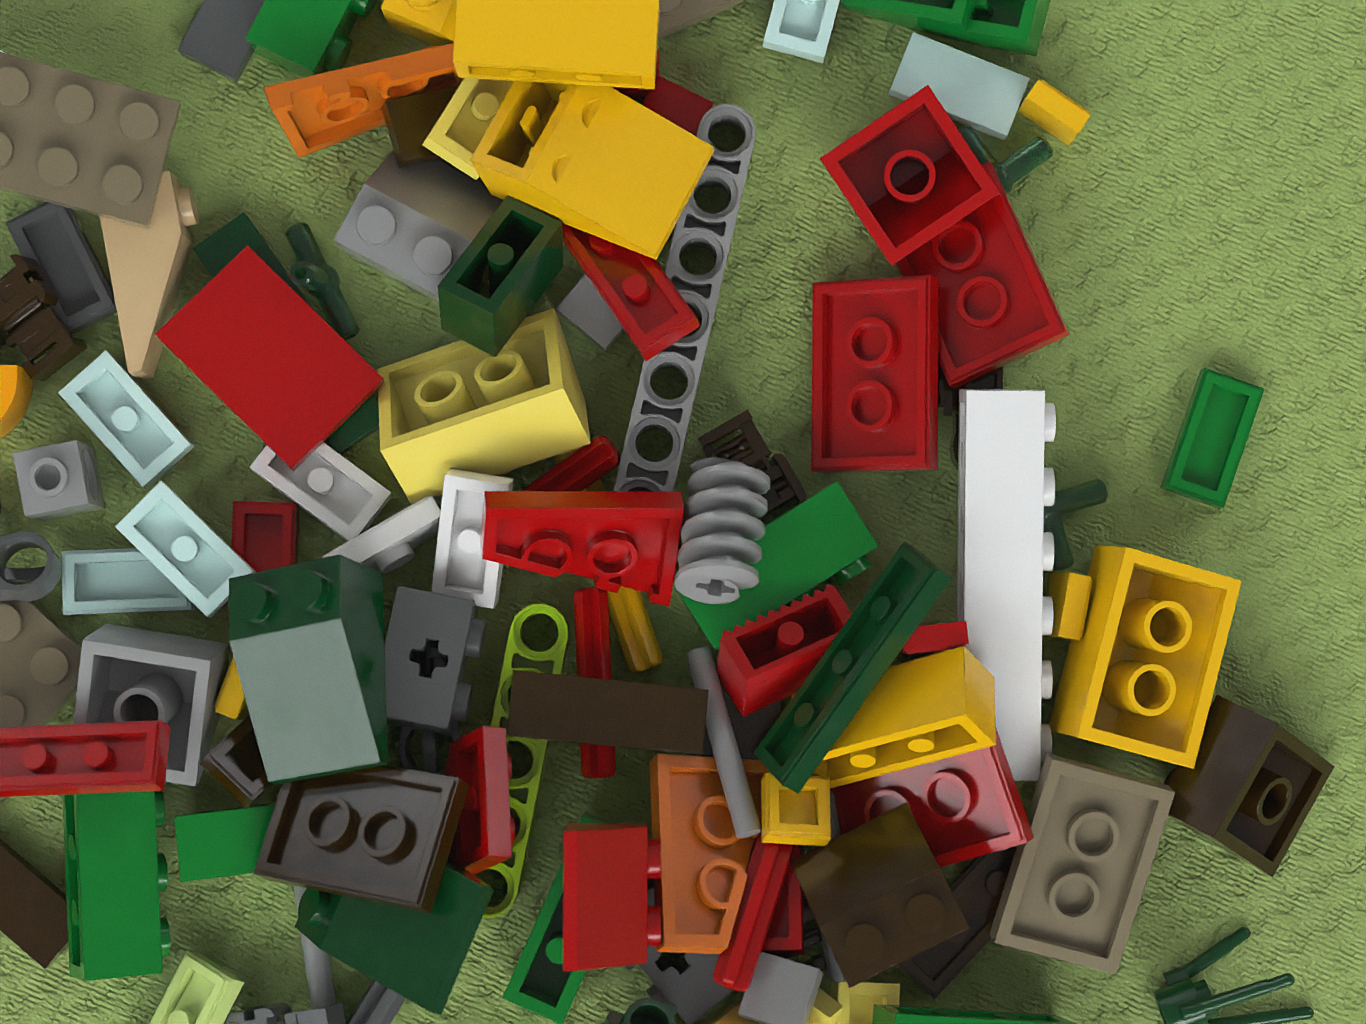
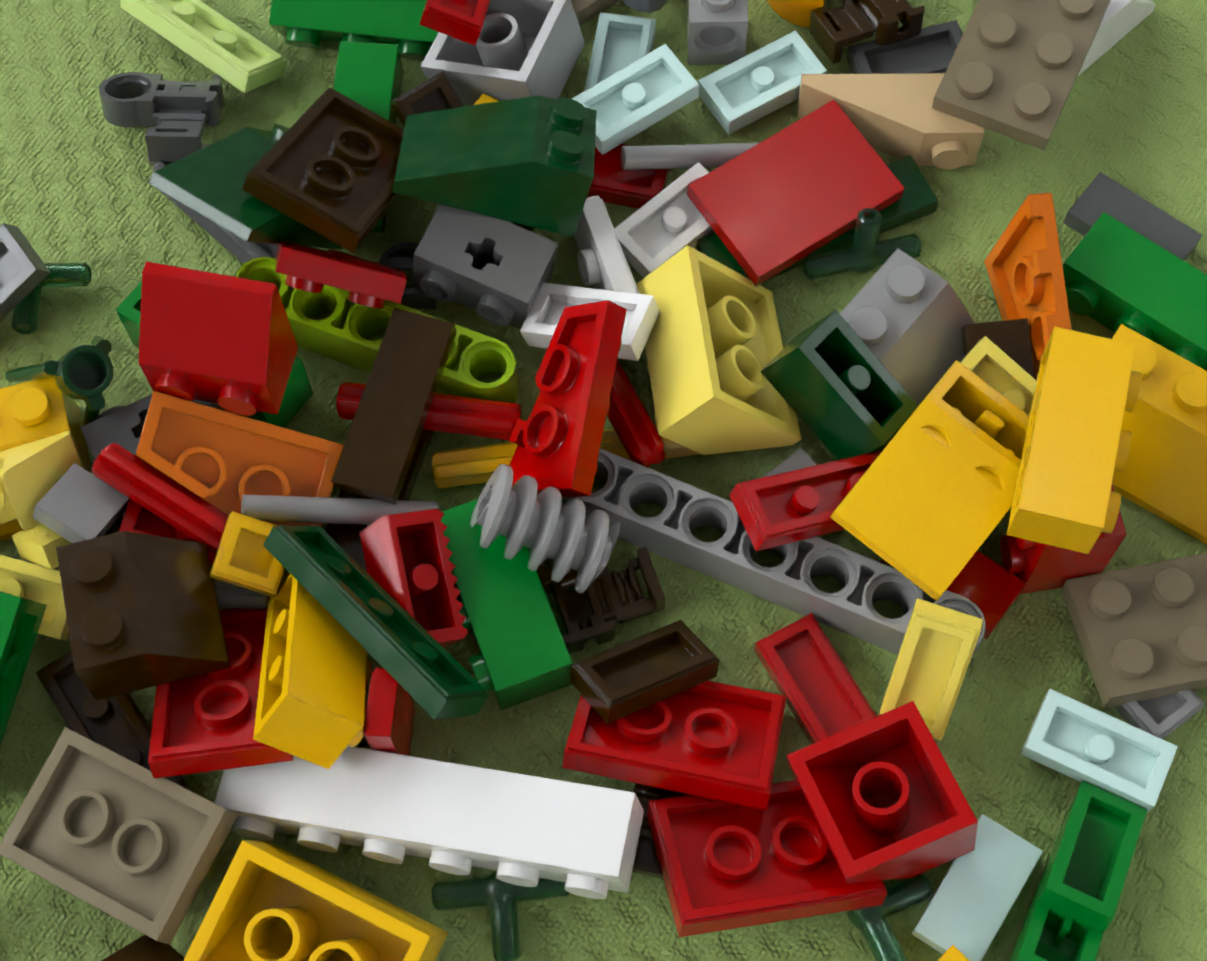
camera: 110 degrees right, 20 degrees down
(236, 470) = (680, 155): none -> light grey bar
(773, 150) = (932, 663): none -> light yellow tile
(794, 257) = (813, 679): none -> red tile
(822, 415) = (644, 671): none -> dark brown tile
(1070, 604) = (389, 883): yellow tile -> none

